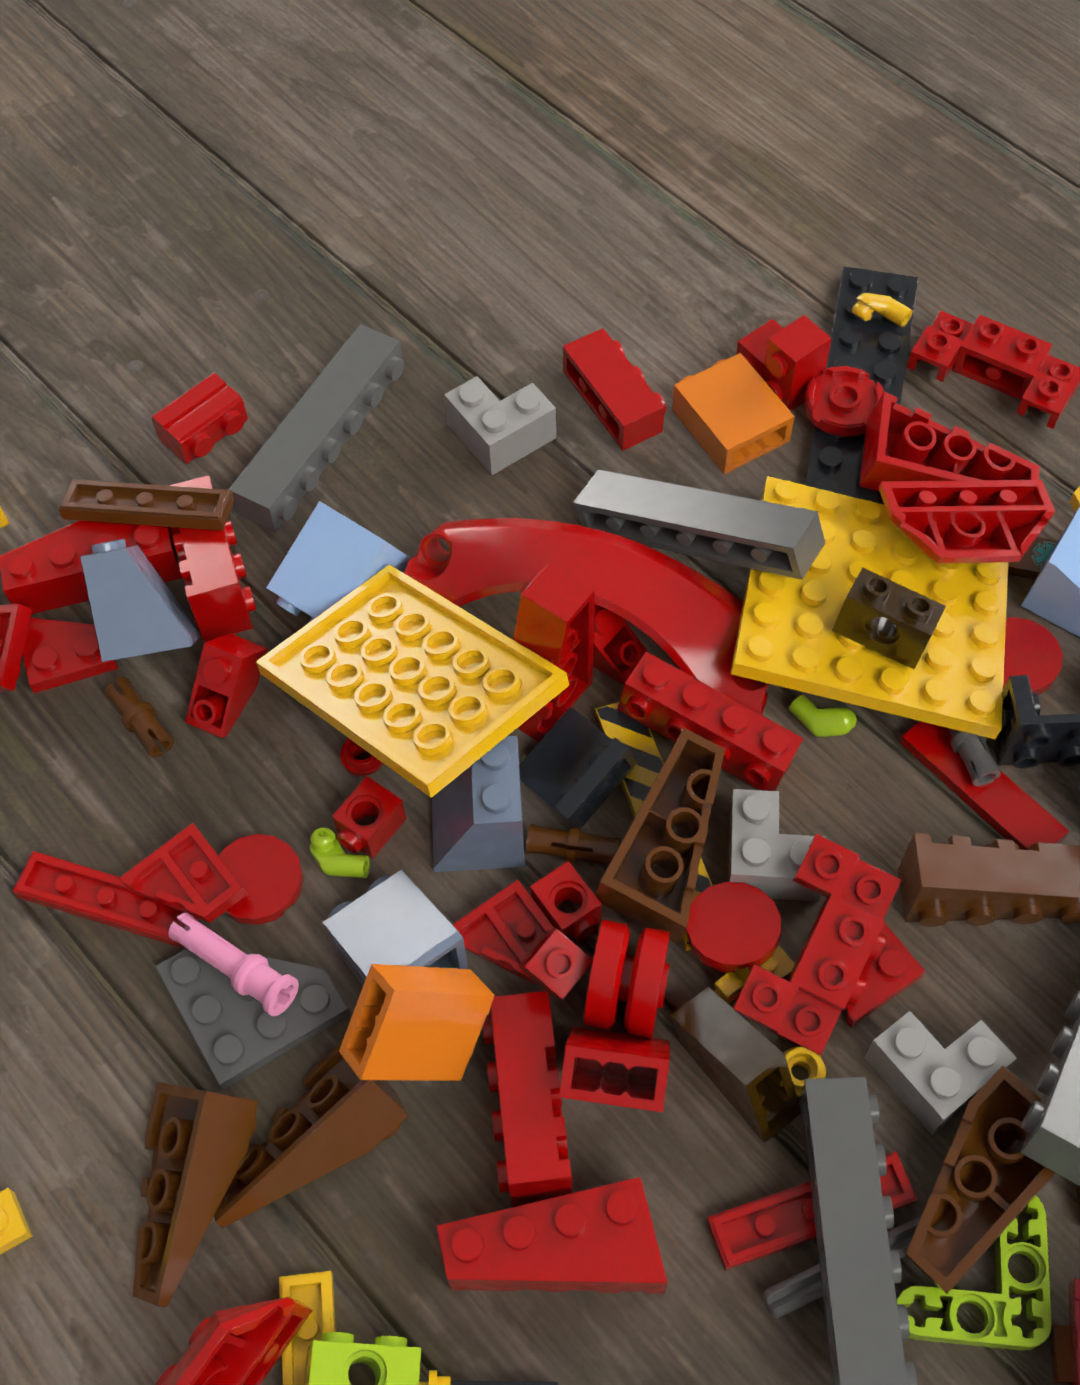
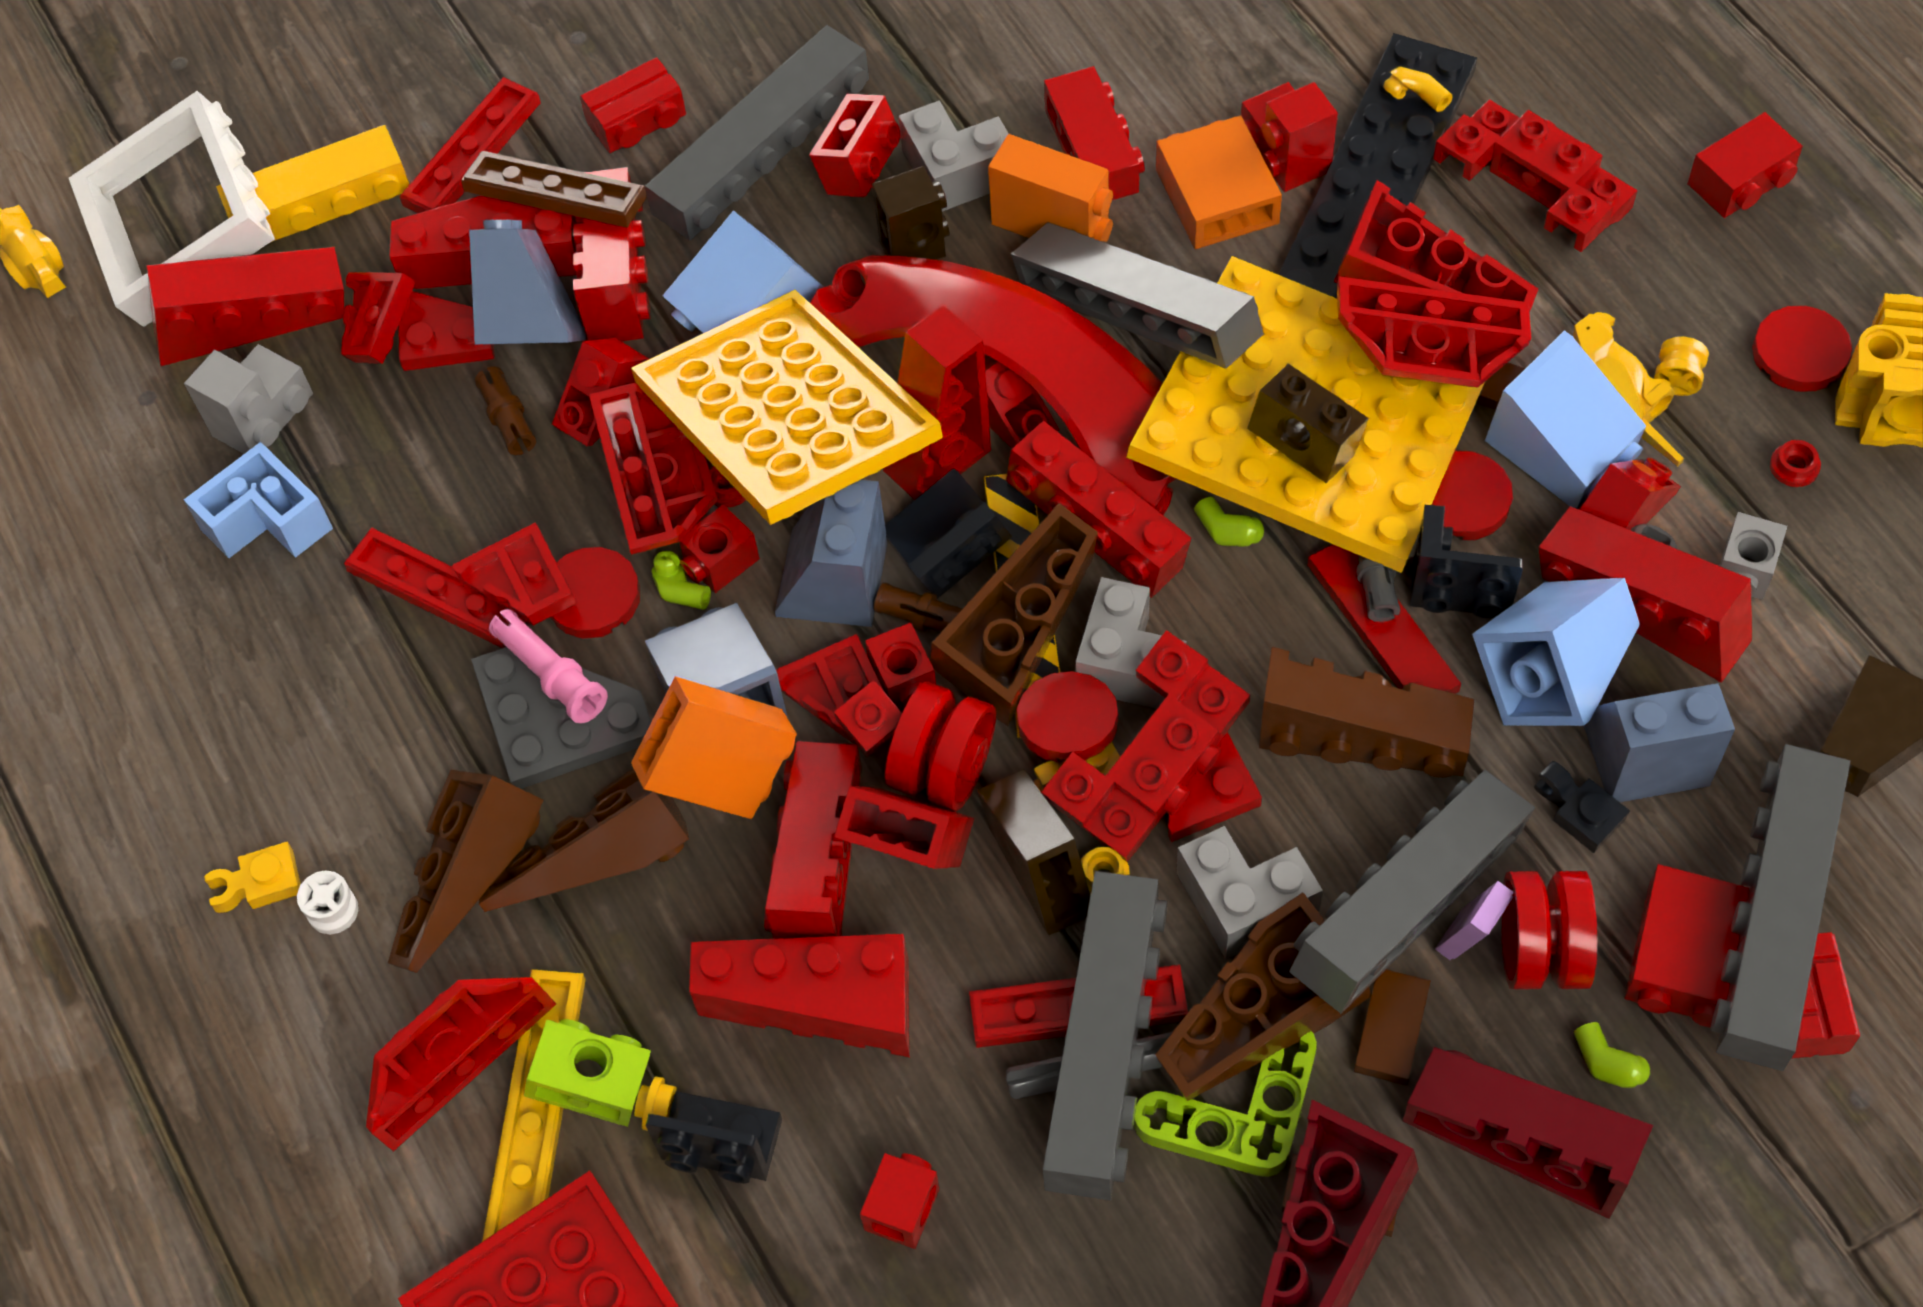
camera: 15 degrees right, 0 degrees up
(52, 1238) = (328, 890): none -> white wheel
(67, 460) = (484, 130): none -> red tile
(293, 753) = (653, 467): none -> red wedge
(410, 426) = (855, 145): none -> red brick
(476, 481) = (911, 215): none -> dark brown brick
(590, 438) = (1044, 185): none -> orange brick
(844, 411) = (1336, 197): red tile -> none

